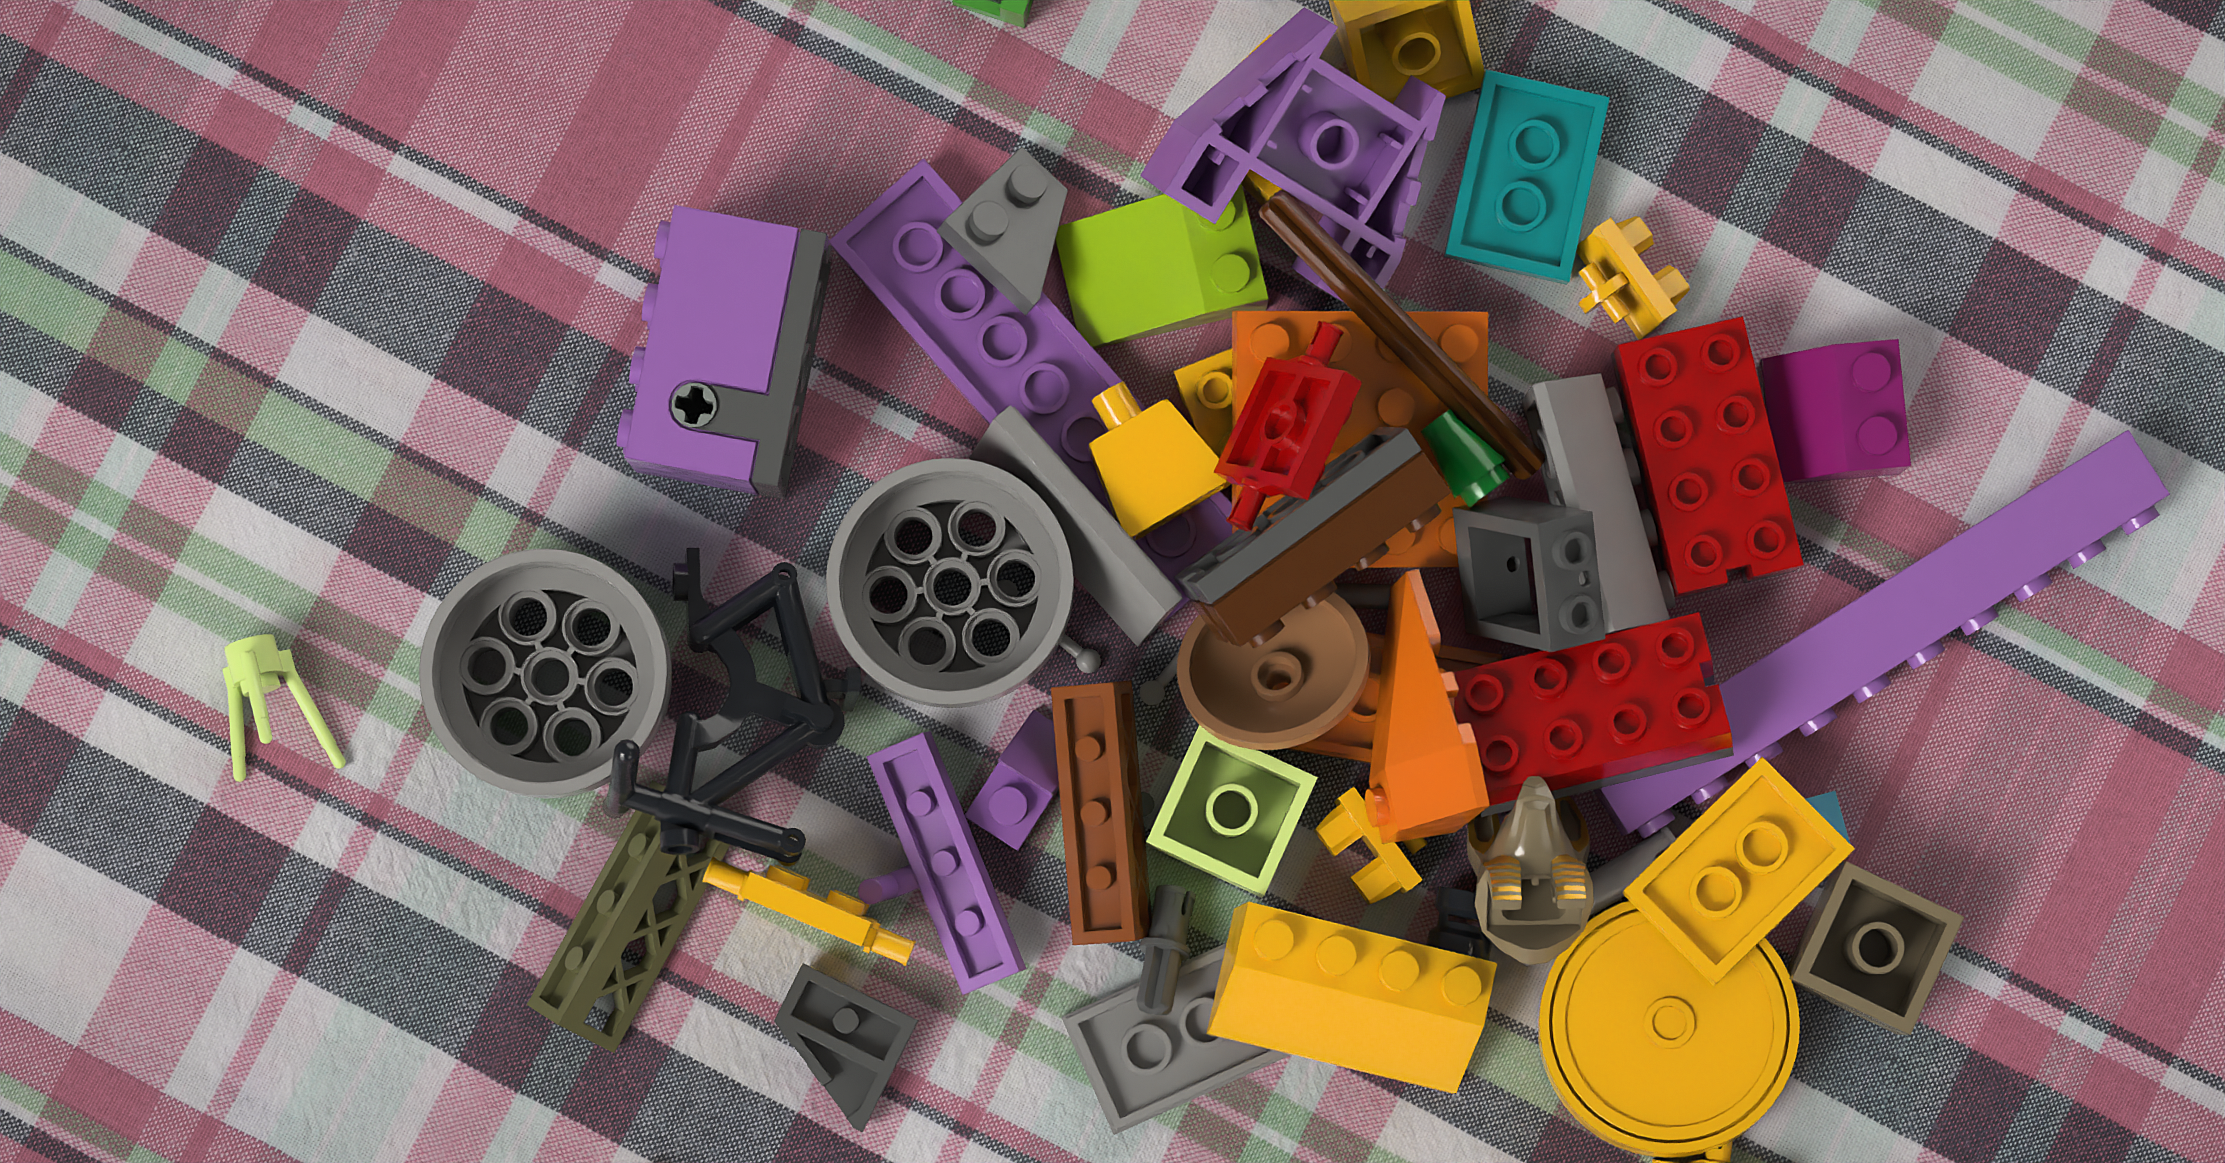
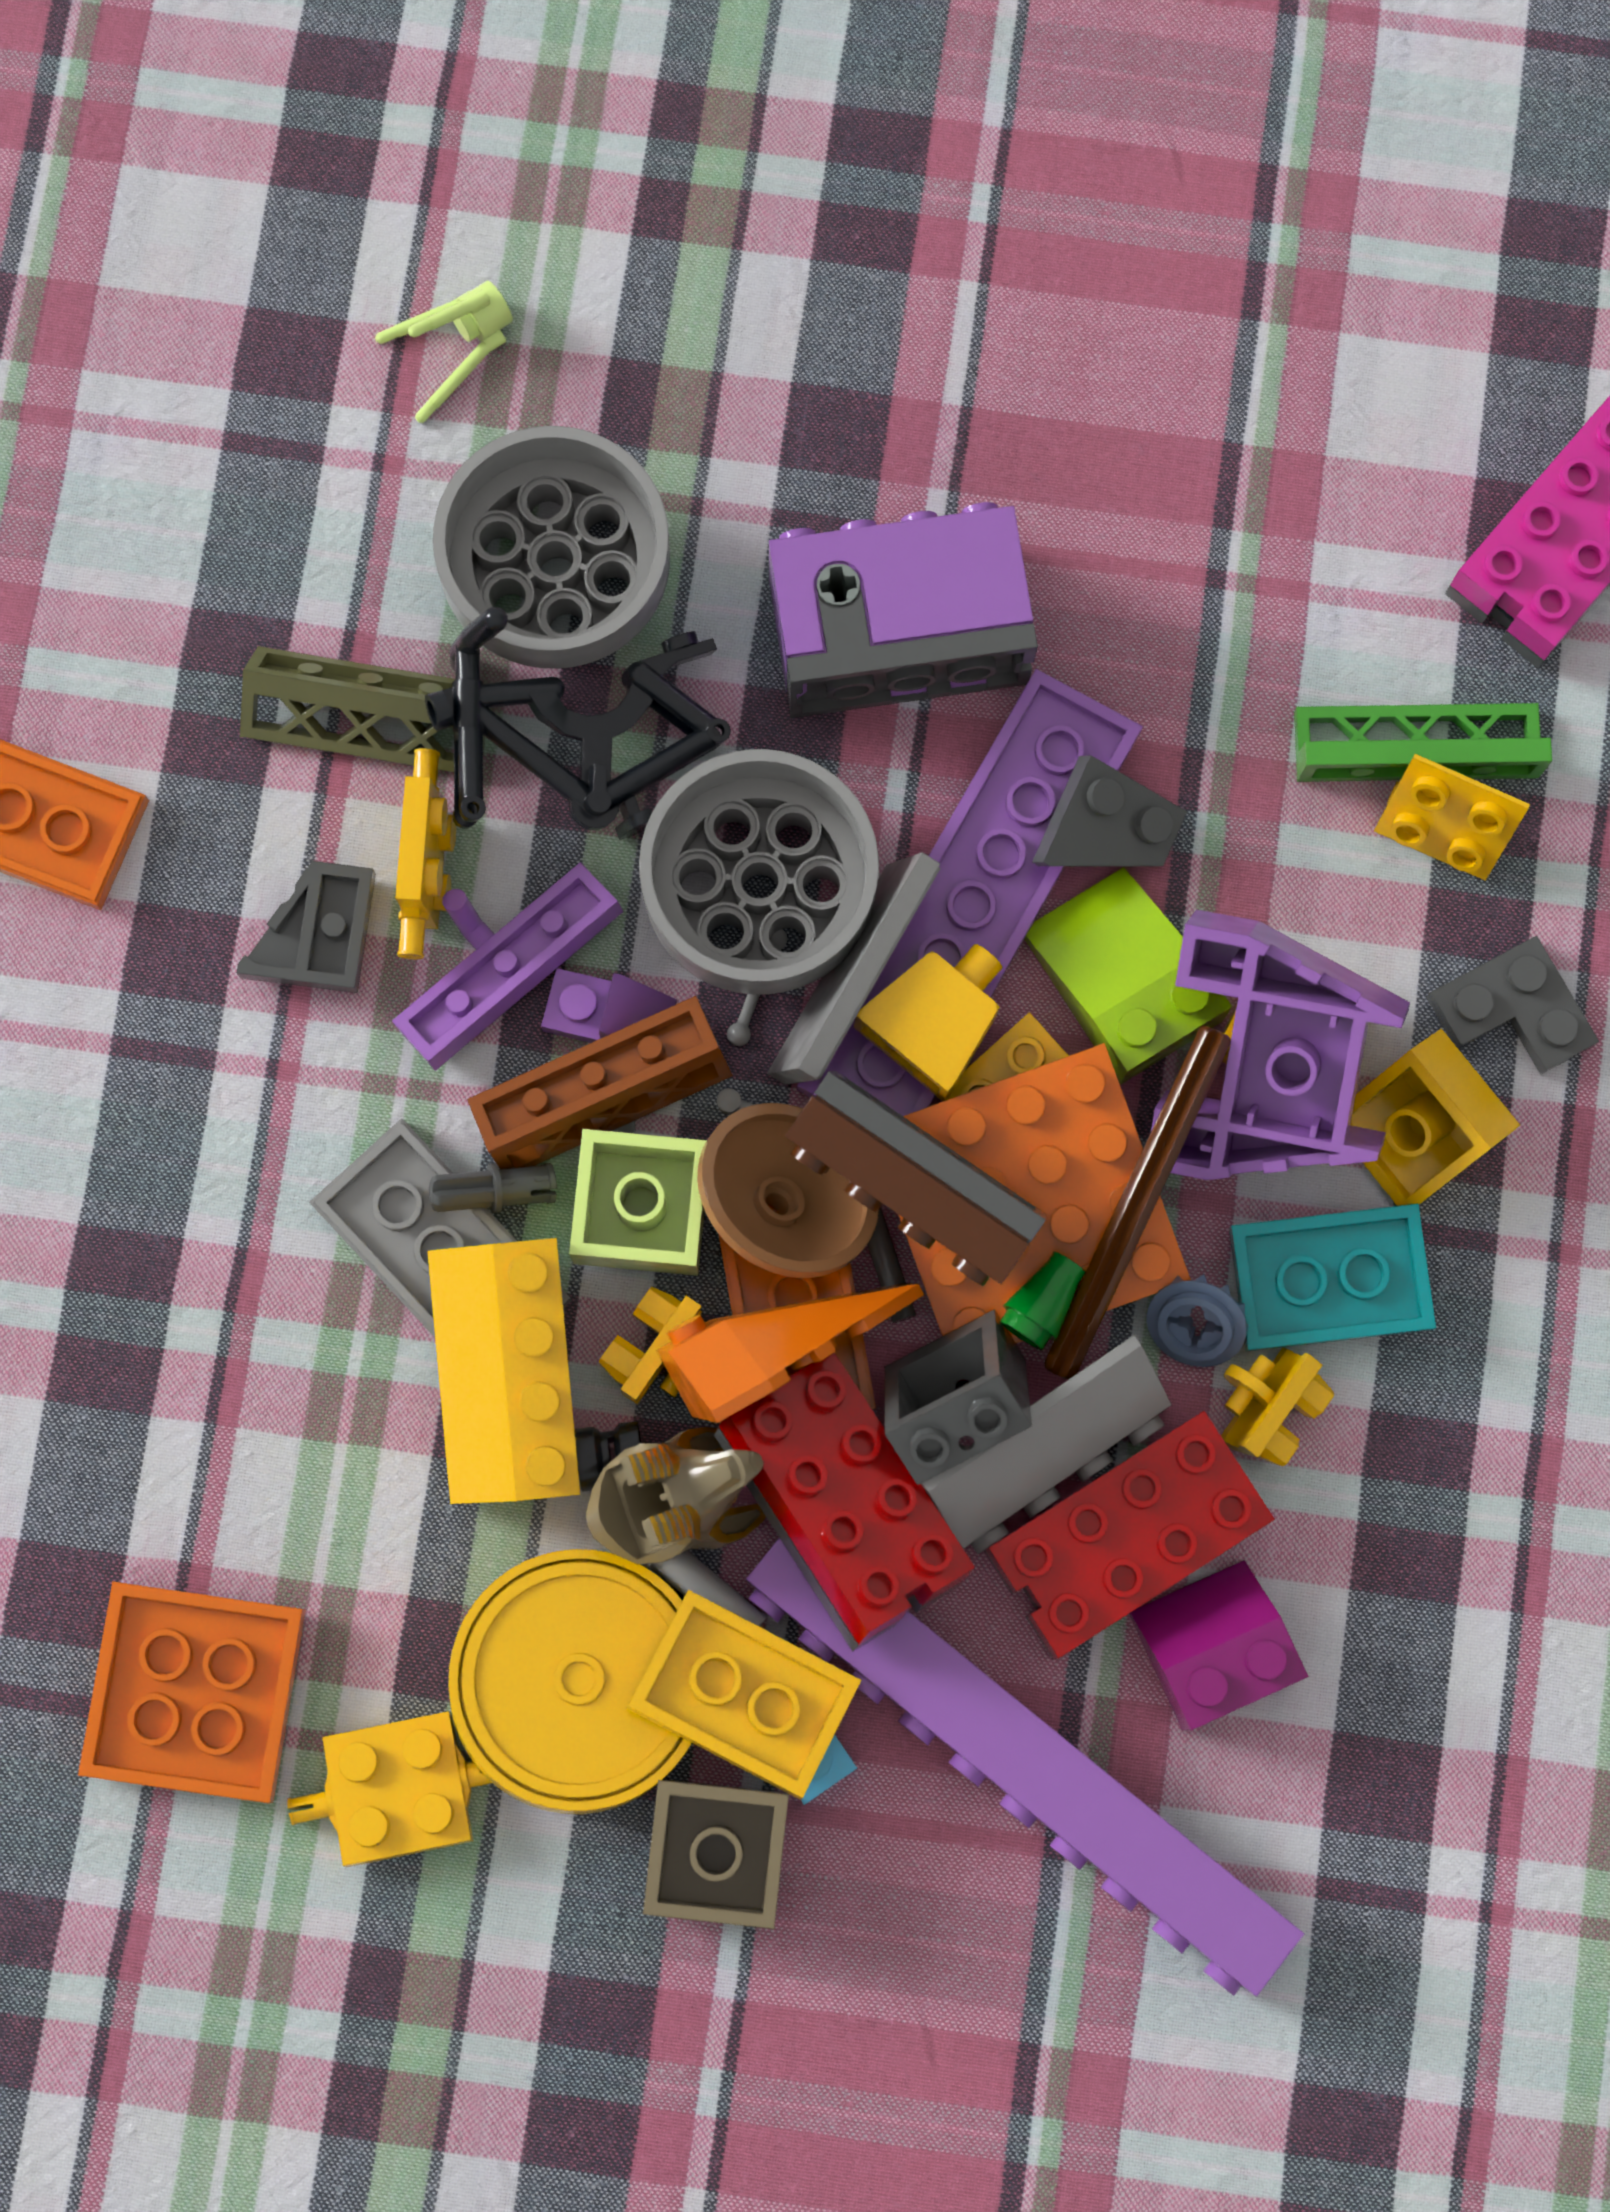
camera: 70 degrees right, 5 degrees down
(1287, 427) = (1009, 1116): red plate -> none
(1527, 345) = (1174, 1330): none -> sand blue gear

